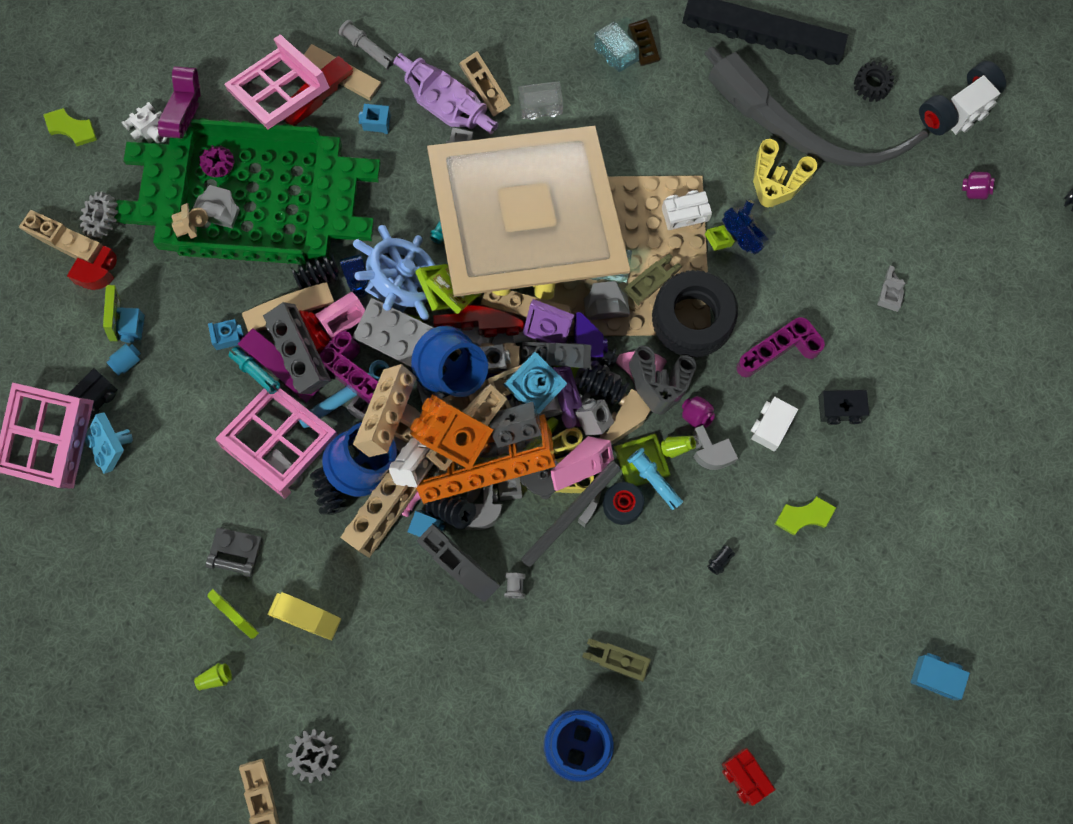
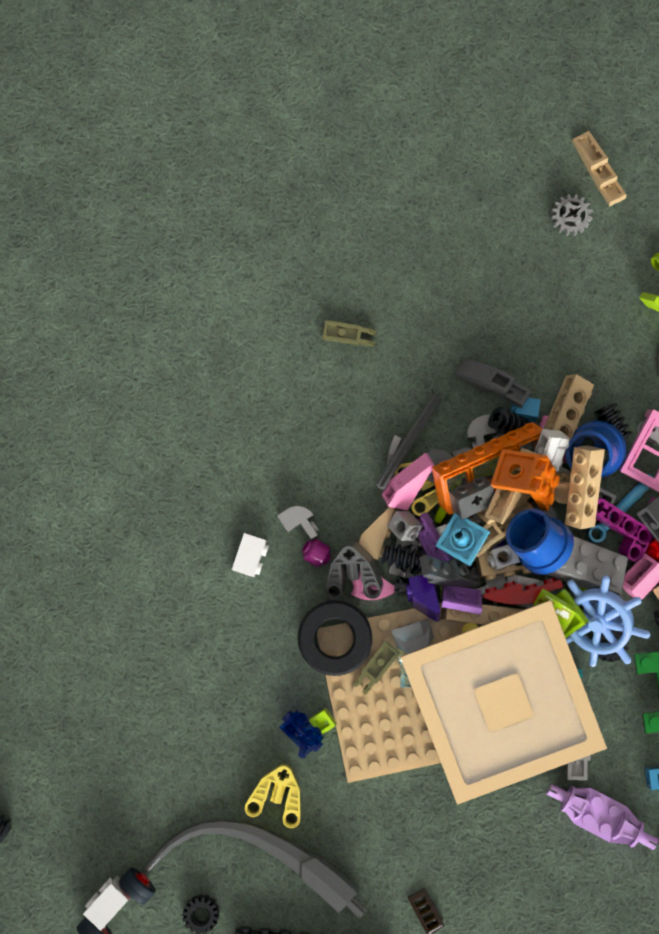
camera: 175 degrees right, 10 degrees up
(304, 615) = (607, 315): light yellow connector -> none
(350, 267) = (643, 620): clear blue piece -> none
(484, 83) = (568, 835): tan slope -> none
(515, 586) = (442, 376): light grey bush -> none
(540, 100) = (512, 826): clear brick -> none
(560, 740) = (381, 263): blue piece -> none
(616, 47) = (451, 899): clear light blue brick -> none
(620, 510) = (366, 461): black wheel -> none
(649, 471) = (349, 490): medium azure pin -> none
(652, 451) = (356, 502): lime tile -> none
(677, 445) = (330, 518): lime cone -> none
(686, 210) = (357, 740): white brick -> none
(720, 560) = (277, 430): black pin -> none
(747, 777) = (230, 263): red brick -> none
(775, 349) = (257, 623): magenta beam -> none
(815, 513) = (220, 478): lime tile -> none
(854, 400) = (182, 589): black brick -> none
(891, 291) = (160, 701): light grey slope -> none
(940, 677) = (86, 369): dark azure brick -> none
(978, 185) = (92, 822): magenta head -> none

